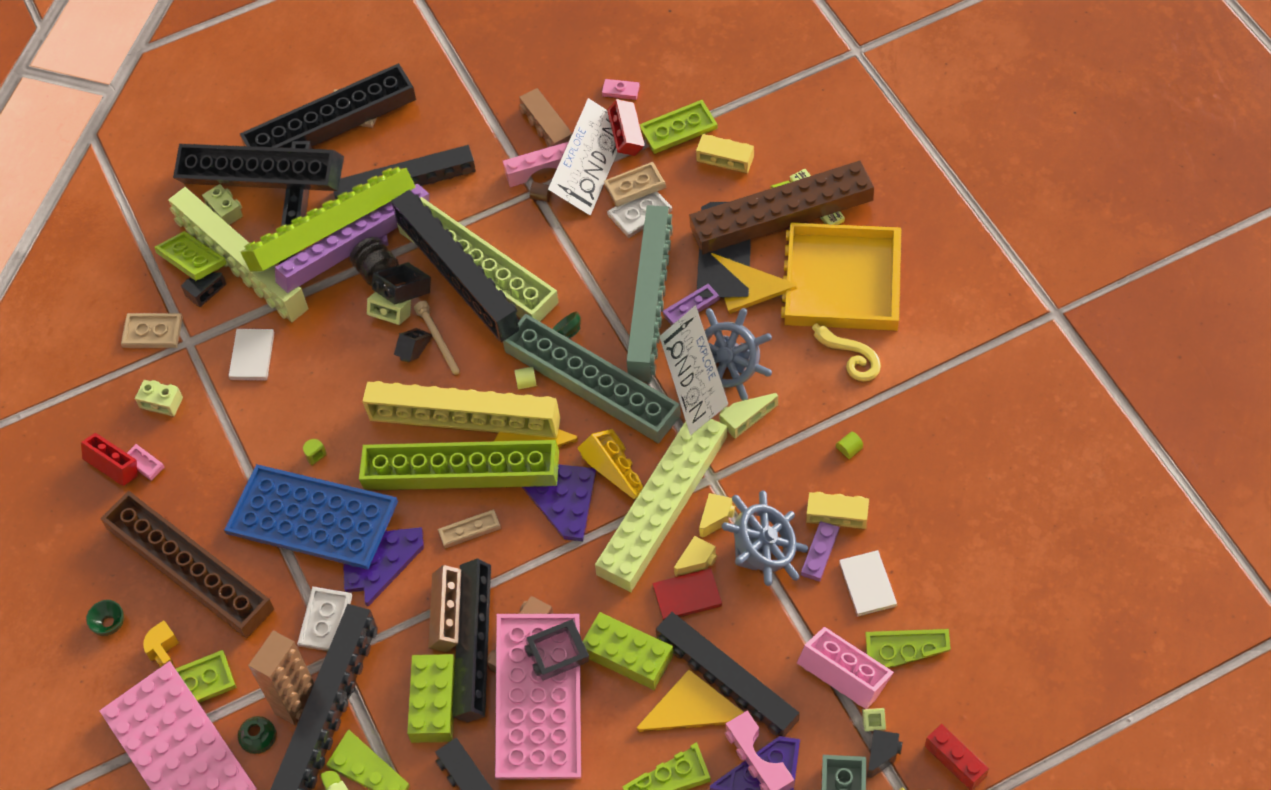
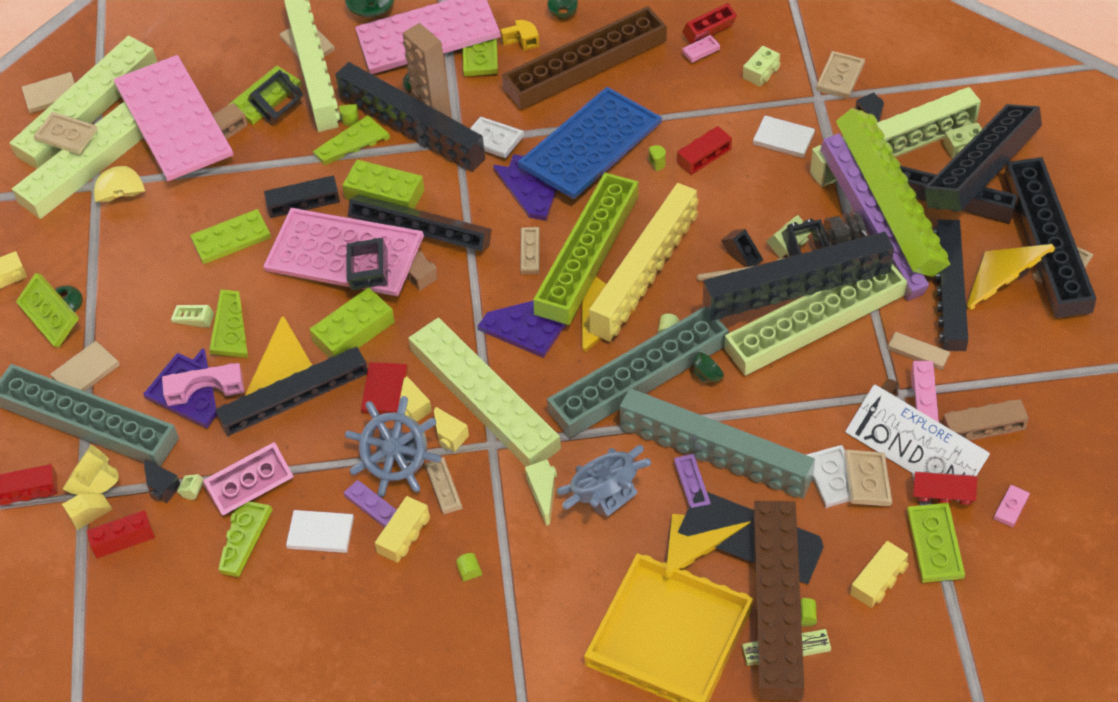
camera: 110 degrees right, 5 degrees down
(190, 255) = (902, 99): lime plate -> none
(292, 413) = (704, 150): none -> red brick
(376, 140) = (1003, 267): none -> yellow tile
(444, 608) = (456, 210): medium nougat brick -> none
(484, 185) = (918, 350): none -> tan tile
(606, 454) = (543, 367): yellow wedge -> none
(693, 370) = (594, 438): white sticker -> none
(781, 493) = (443, 486): none -> tan tile
(830, 340) = (596, 592): light yellow plant -> none

